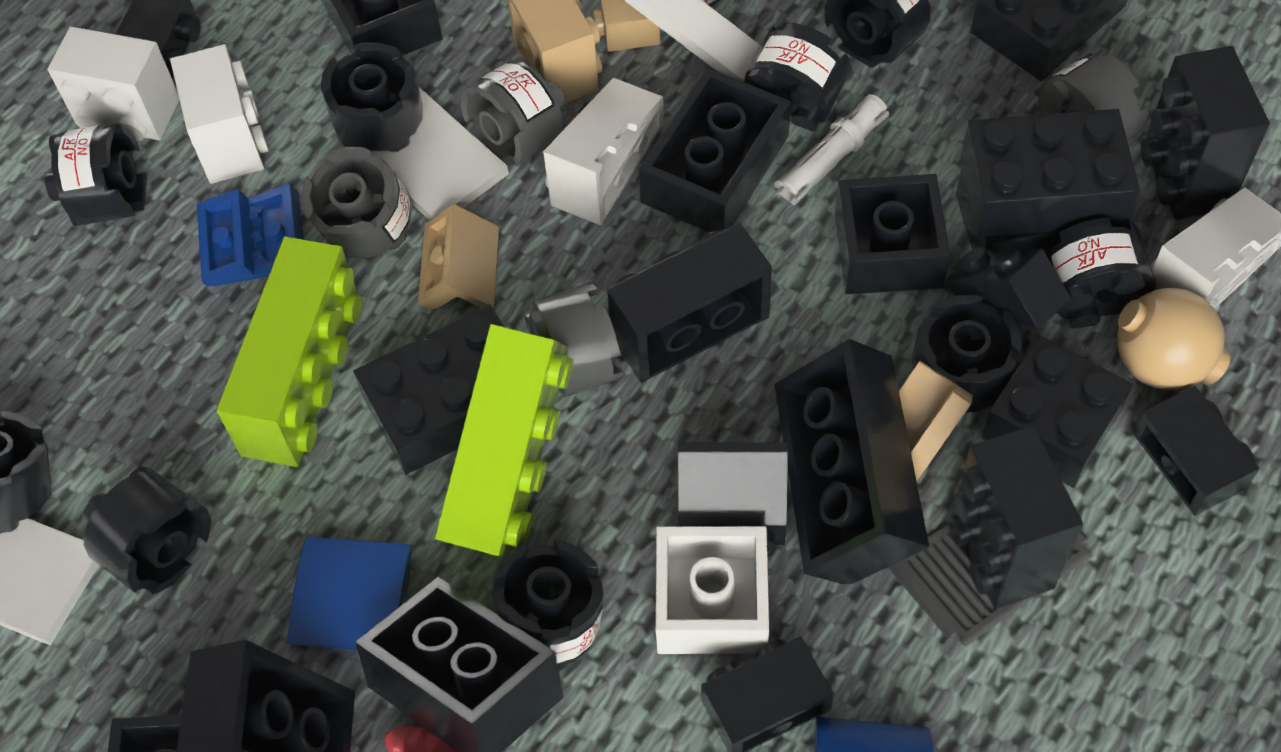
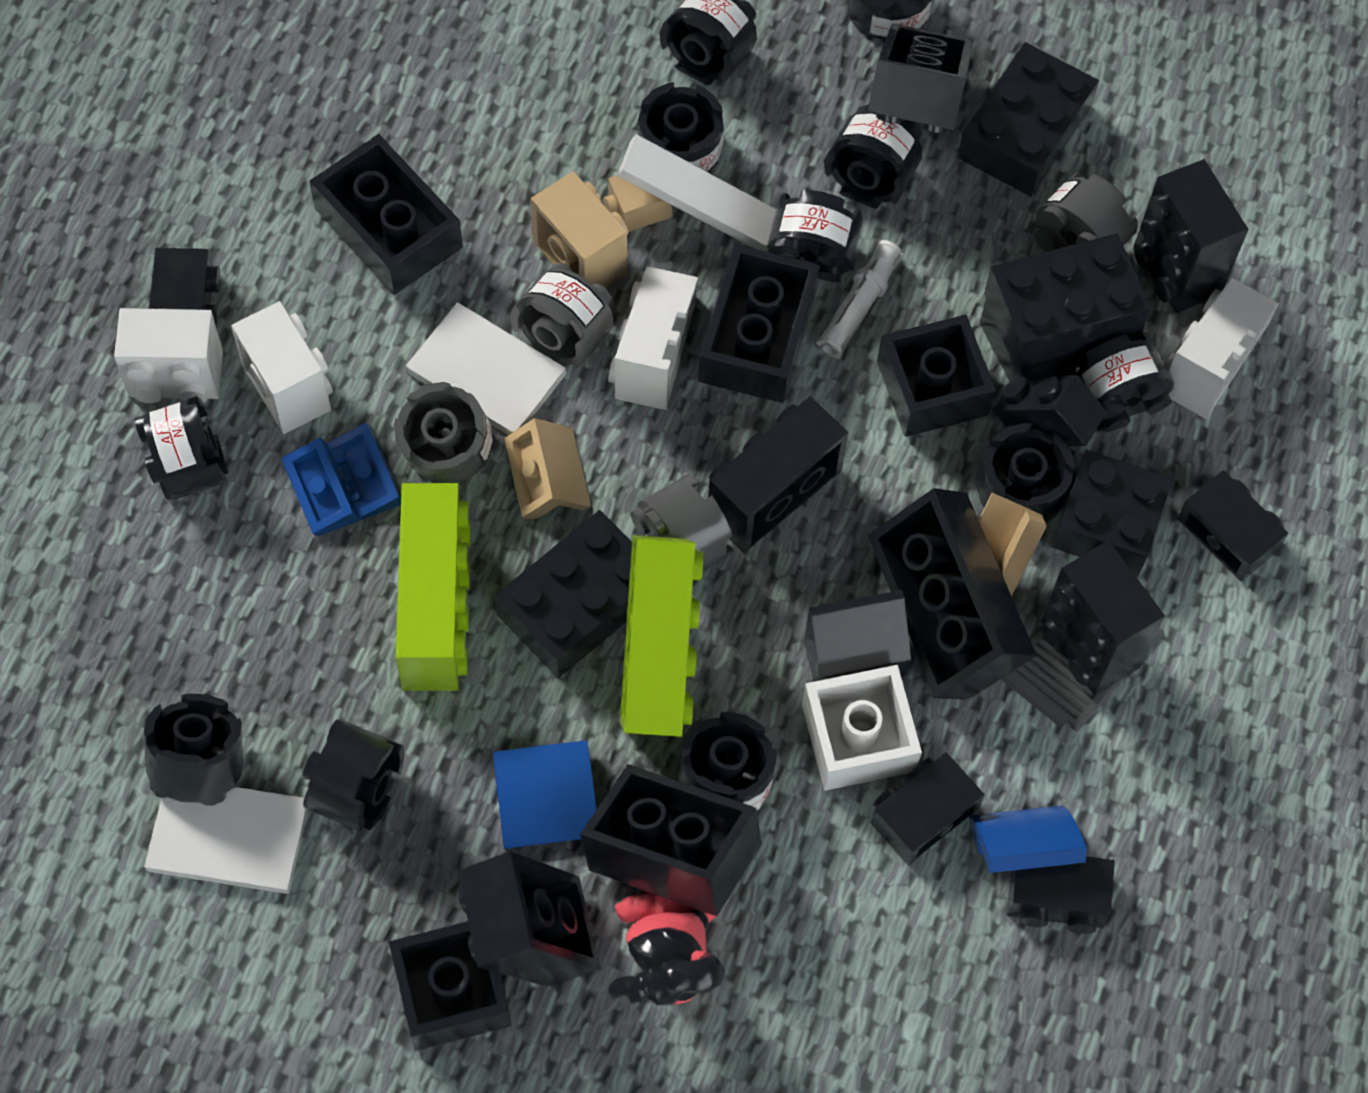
camera: 20 degrees left, 5 degrees up
(372, 98) = (427, 326): black brick -> none
(1172, 340) = (1197, 432): tan brick -> none

